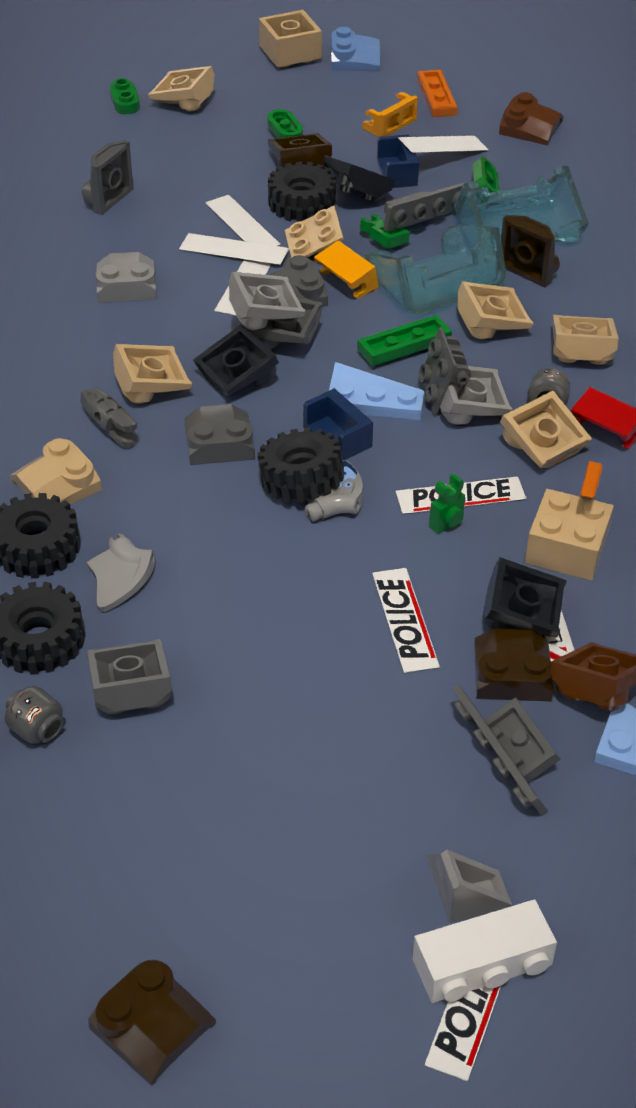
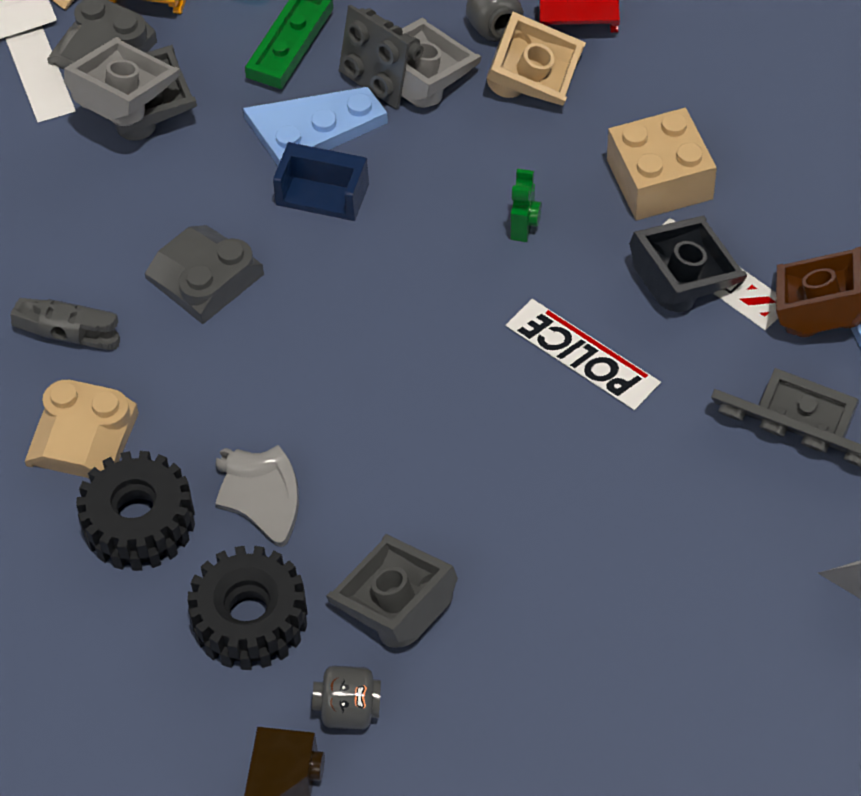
camera: 35 degrees left, 10 degrees up
(147, 371) = (57, 243): tan slope -> none
(237, 362) = (143, 173): black slope -> none
(301, 465) = (330, 230): black tyre -> none
(344, 499) = (388, 260): light grey arm -> none
(475, 494) = (495, 193): white sticker -> none
(512, 666) = (728, 336): dark brown slope -> none
(590, 480) = (646, 95): orange tile -> none

